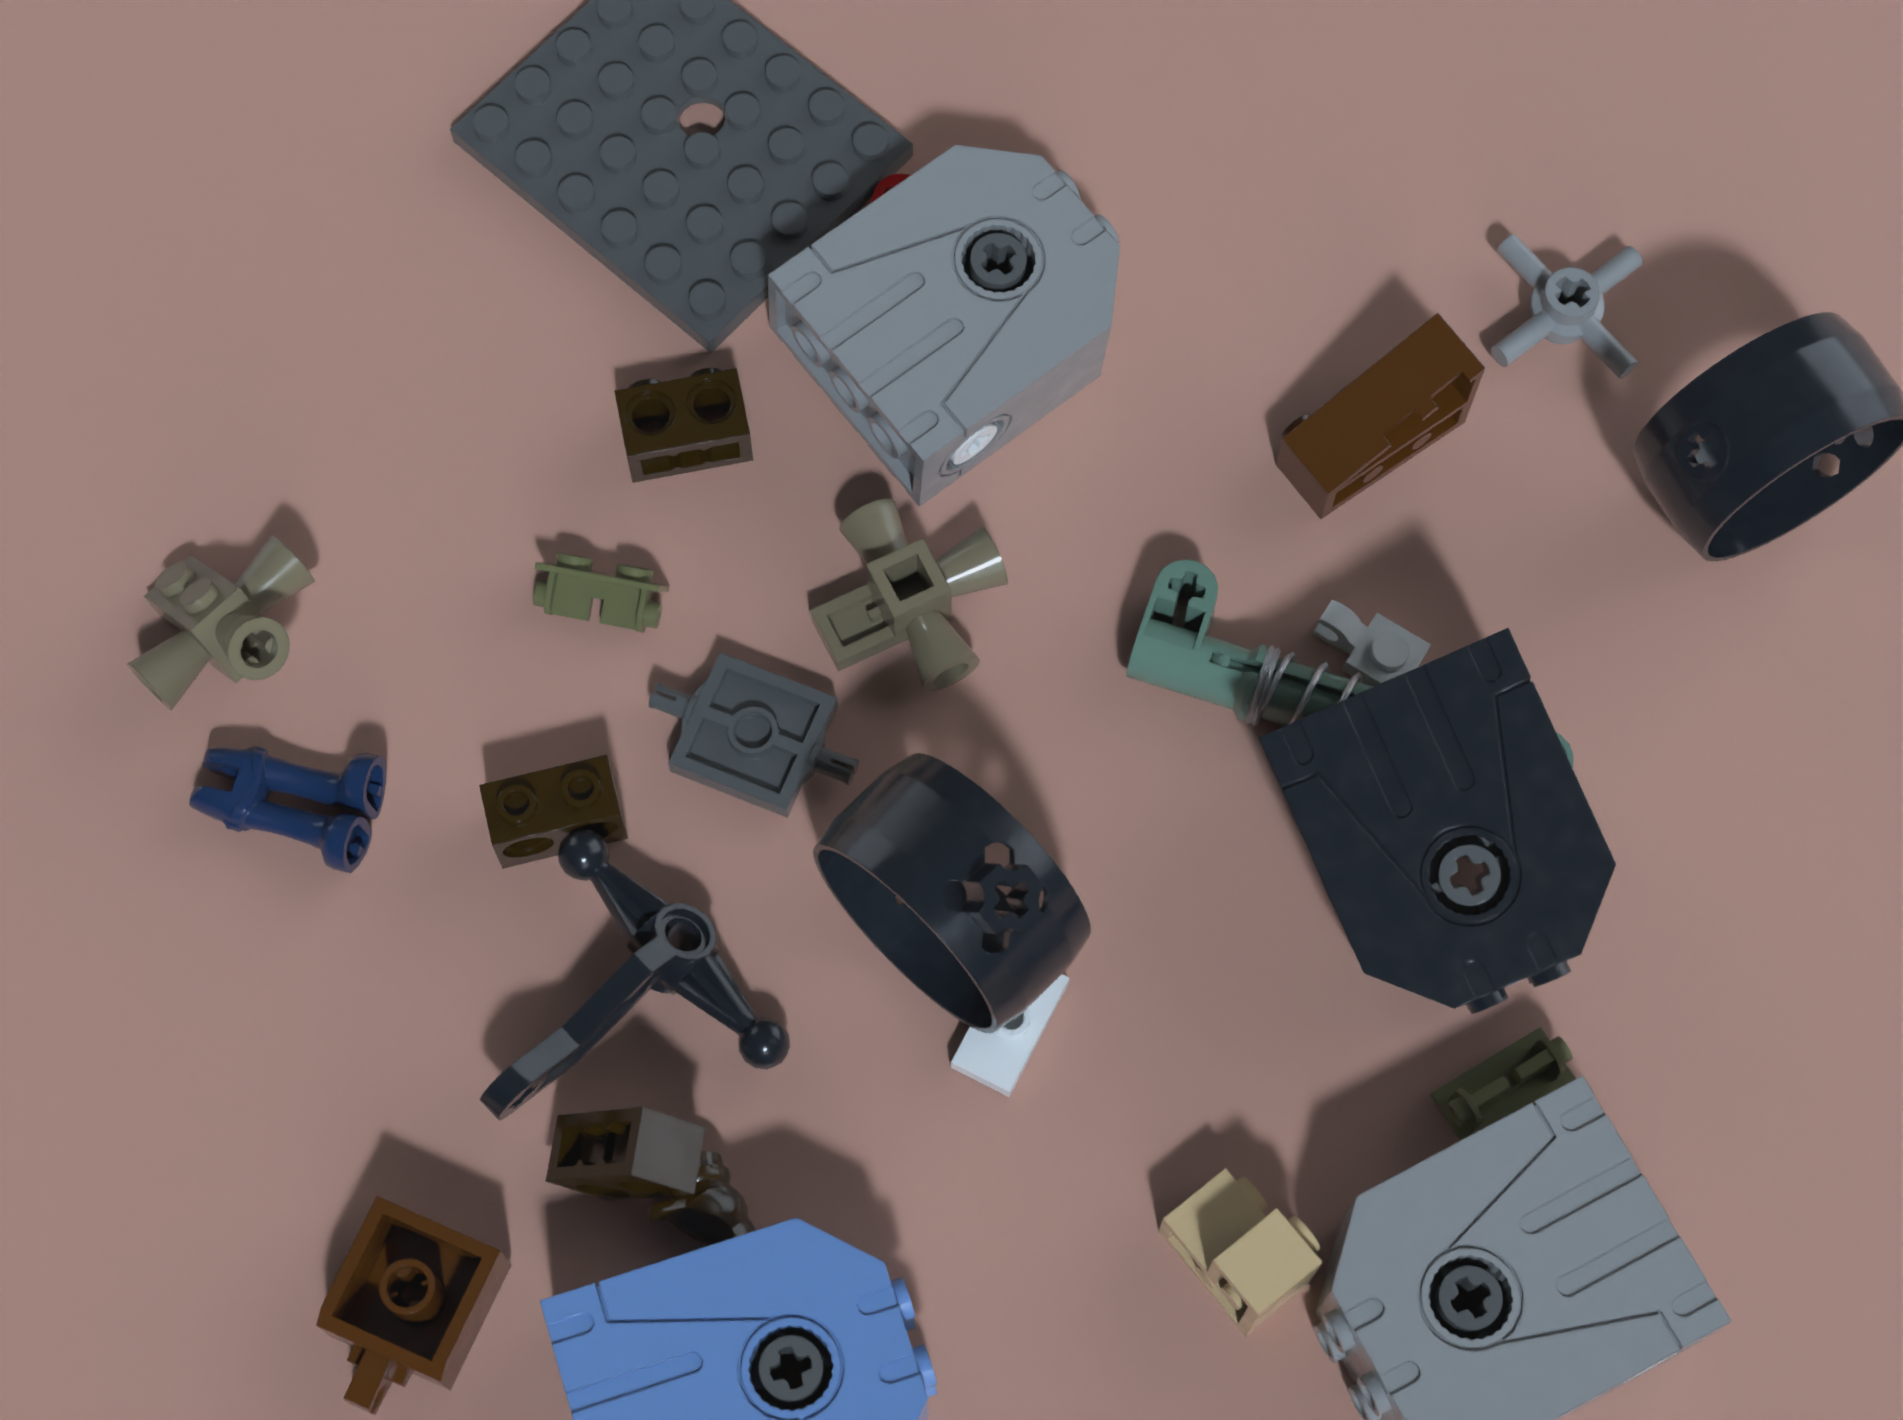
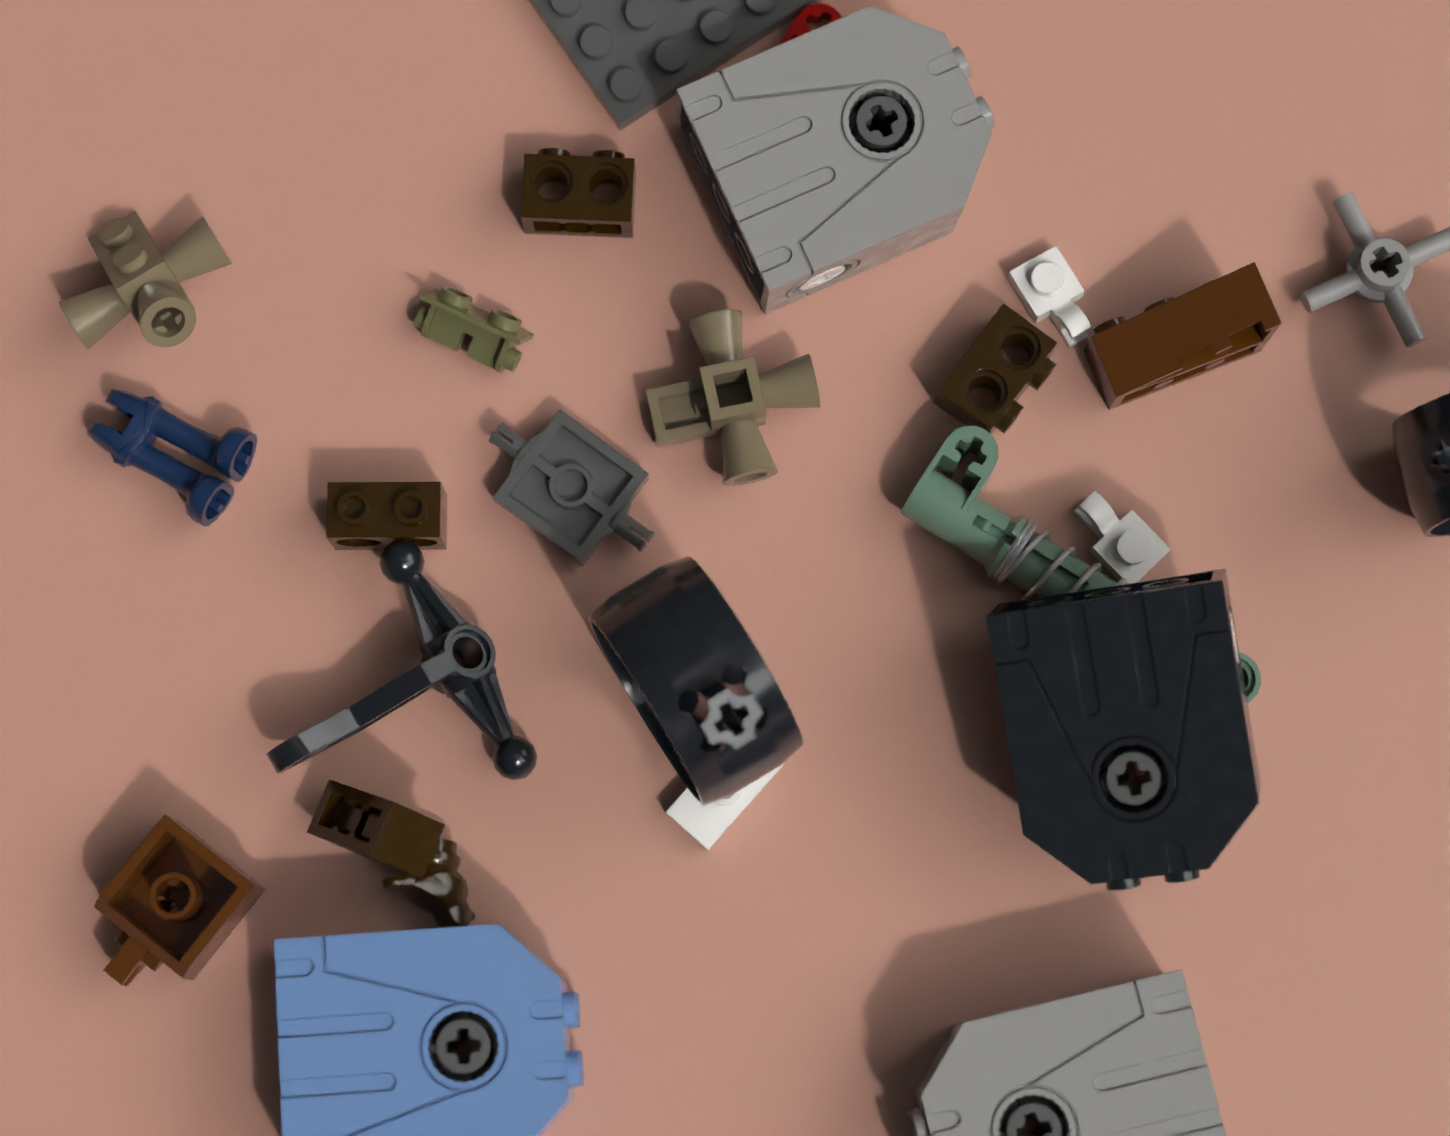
camera: 15 degrees right, 10 degrees up
(1180, 502) = (986, 367): none -> dark brown brick
(1224, 408) = (1050, 289): none -> white plate
(1240, 1254) = (861, 1034): tan brick -> none
(1505, 1083) = (1123, 948): olive hinge -> none

